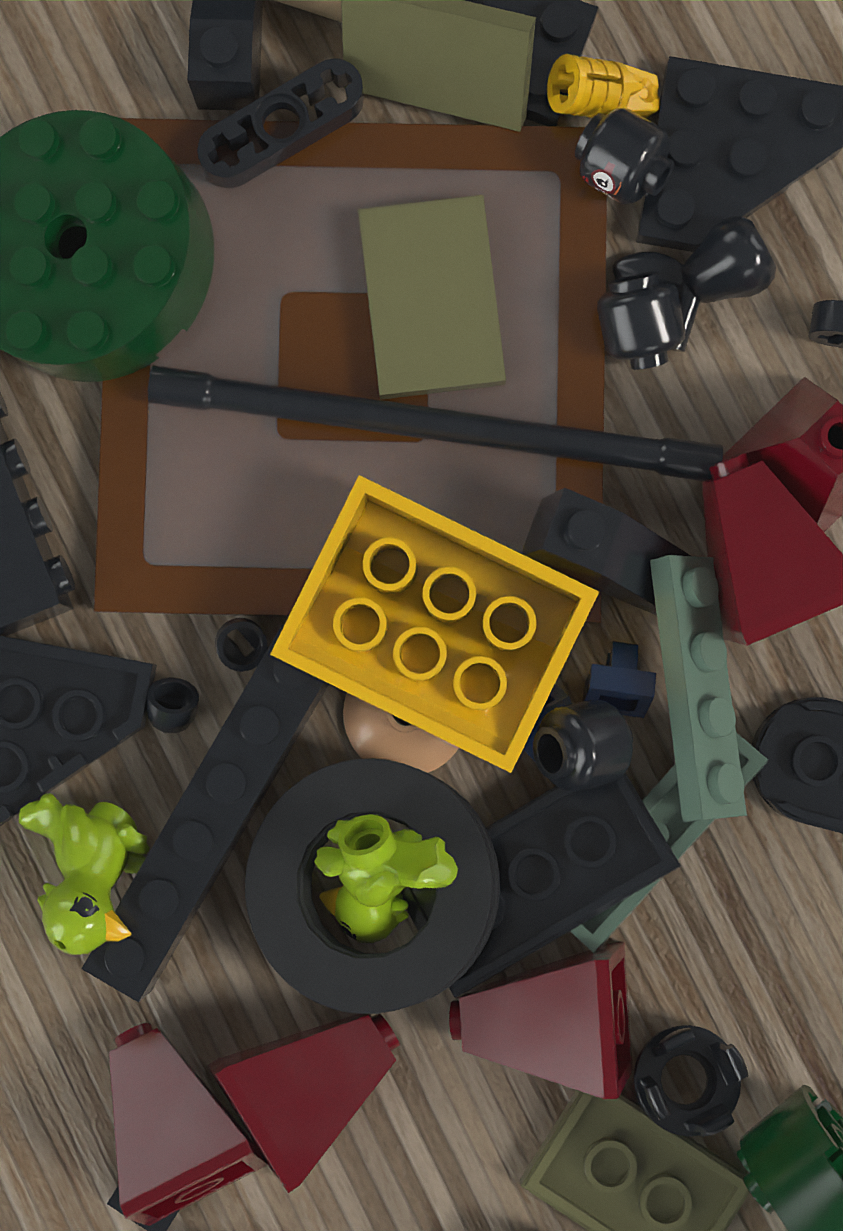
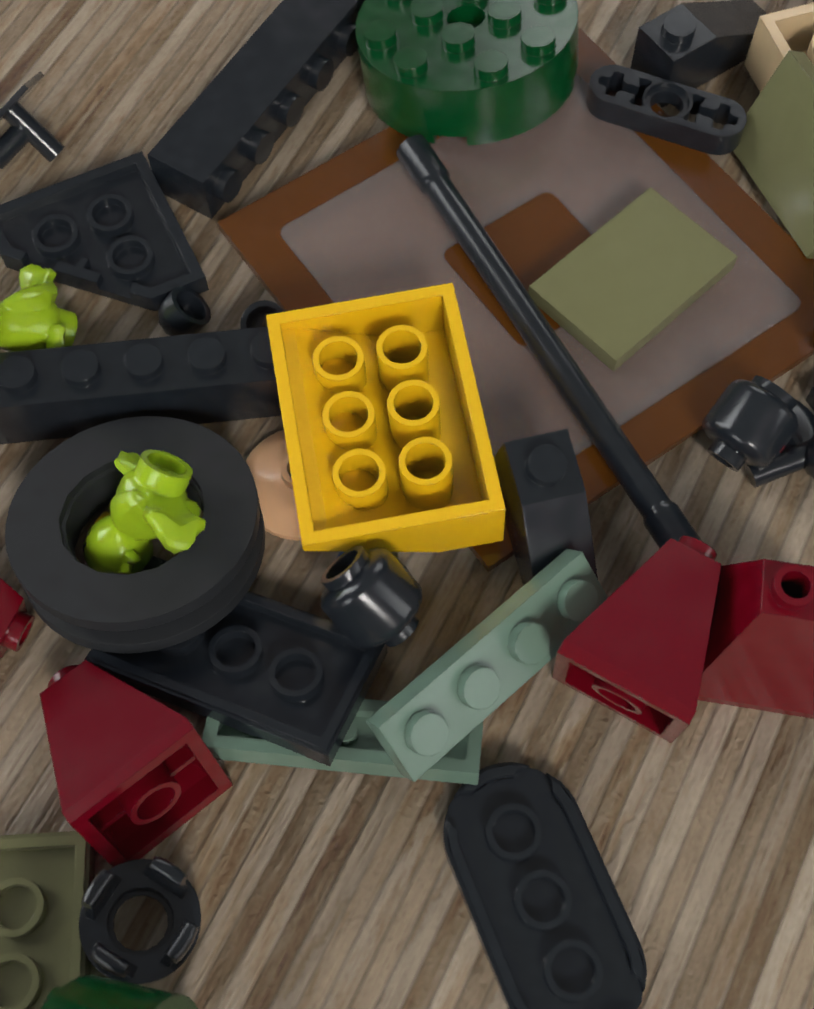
camera: 50 degrees right, 20 degrees down
(621, 682) = (449, 610): dark blue tile -> none

